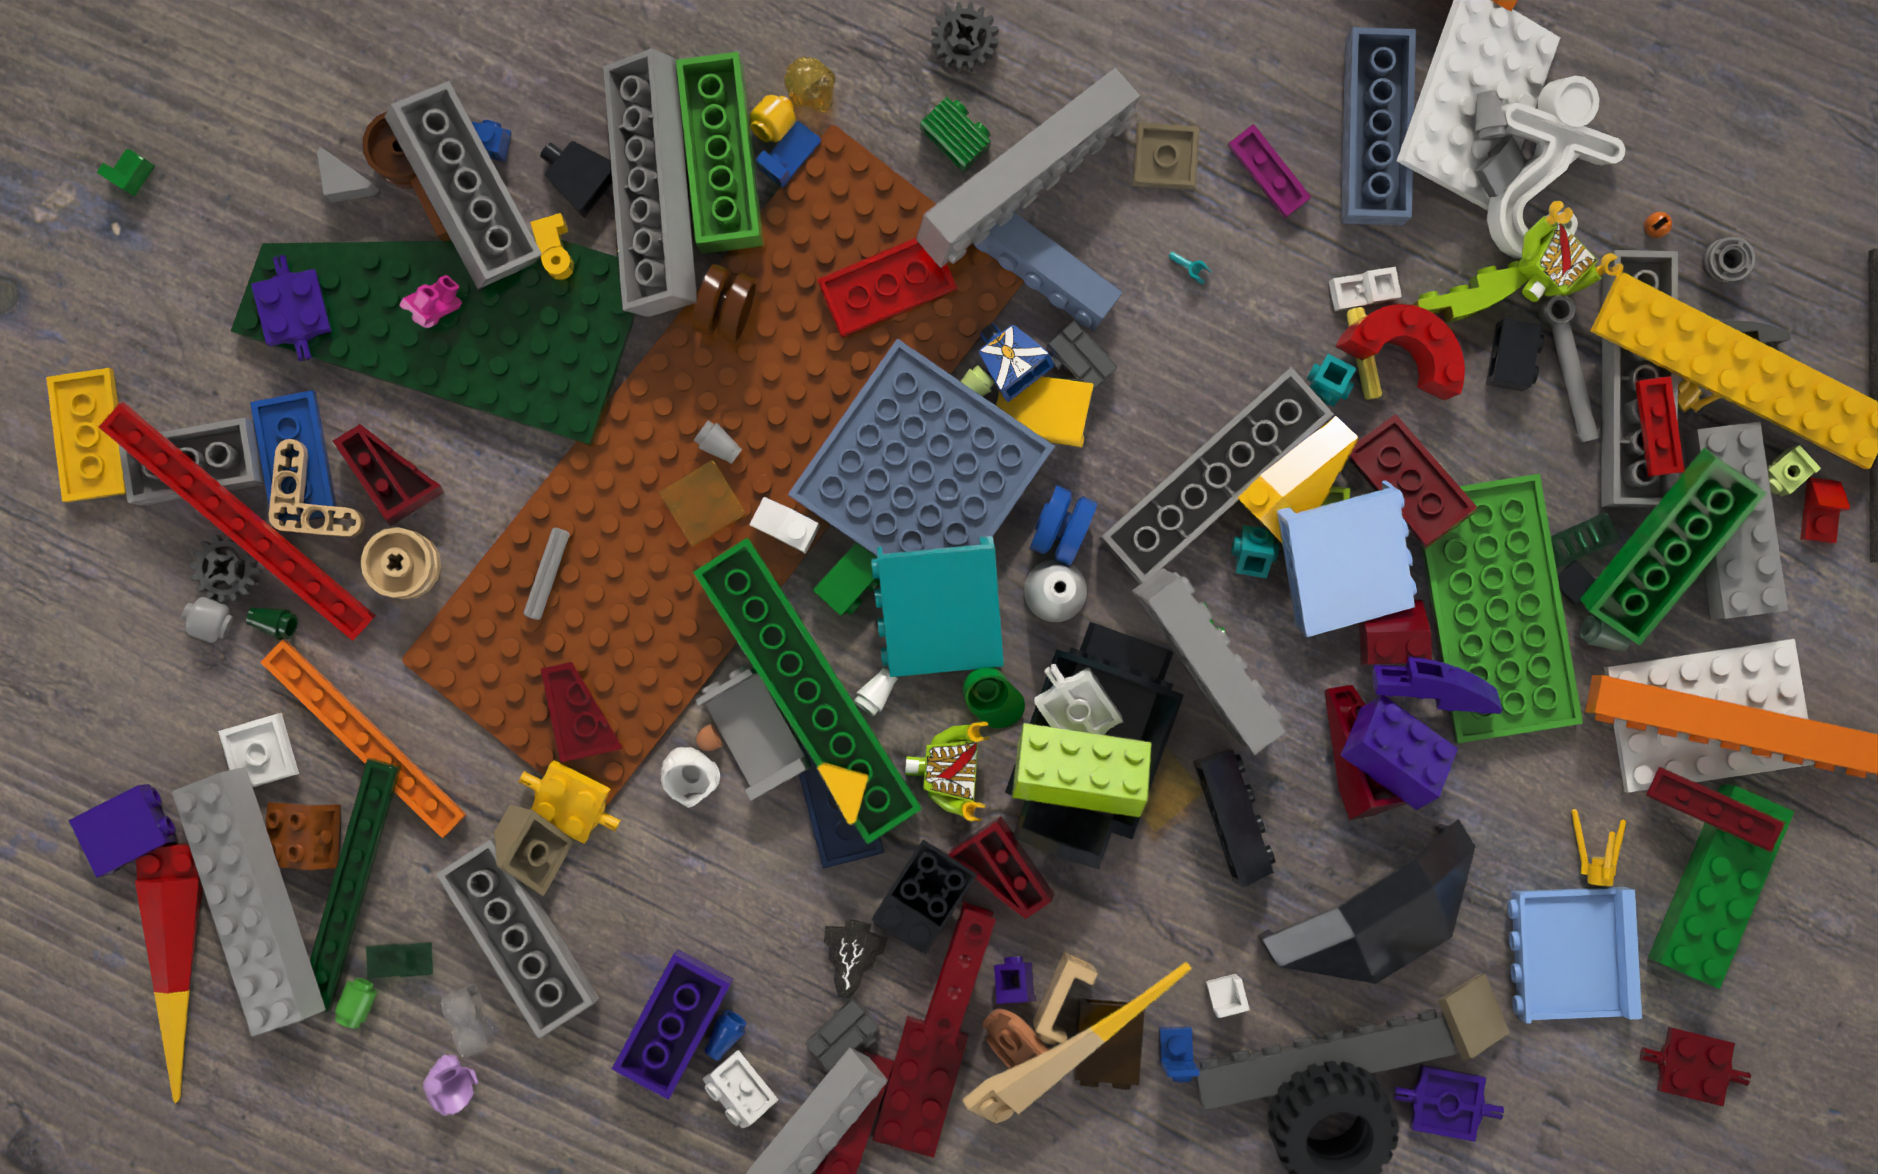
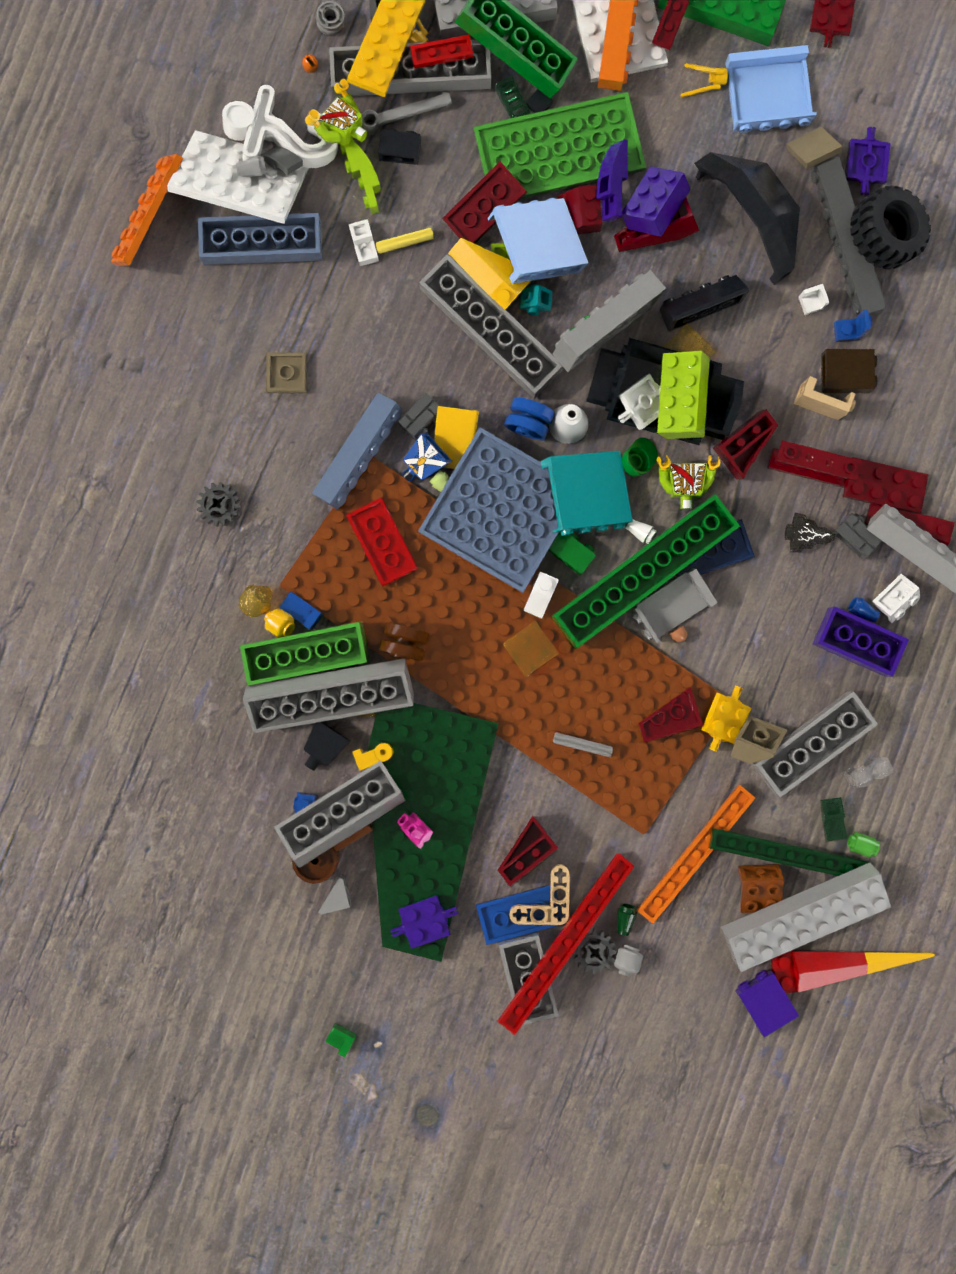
camera: 90 degrees left, 0 degrees up
(85, 454) = (507, 1053): yellow plate -> none
(261, 748) = (707, 919): white plate -> none
(382, 558) = (583, 850): tan wheel -> none
(449, 1085) = (910, 780): lavender hair -> none
(689, 772) = (701, 643): white hair -> none
(717, 442) = (491, 642): light grey cone -> none
(846, 787) = (706, 539): yellow slope -> none
(923, 896) = (769, 490): black slope -> none
(956, 134) = (281, 505): green brick -> none
(1005, 987) = (823, 431): dark purple brick -> none
(1012, 1038) = (853, 428): nougat tile -> none
(1023, 1084) = (877, 412): tan plate -> none
(1027, 168) = (305, 453): light grey brick -> none
(1192, 267) = (357, 351): teal hand -> none
(1269, 171) = (292, 306): magenta plate -> none
(1331, 380) = (424, 258): teal brick -> none
(1418, 332) = (394, 200): red brick -> none
(1600, 634) = (571, 84): sand green cone -> none

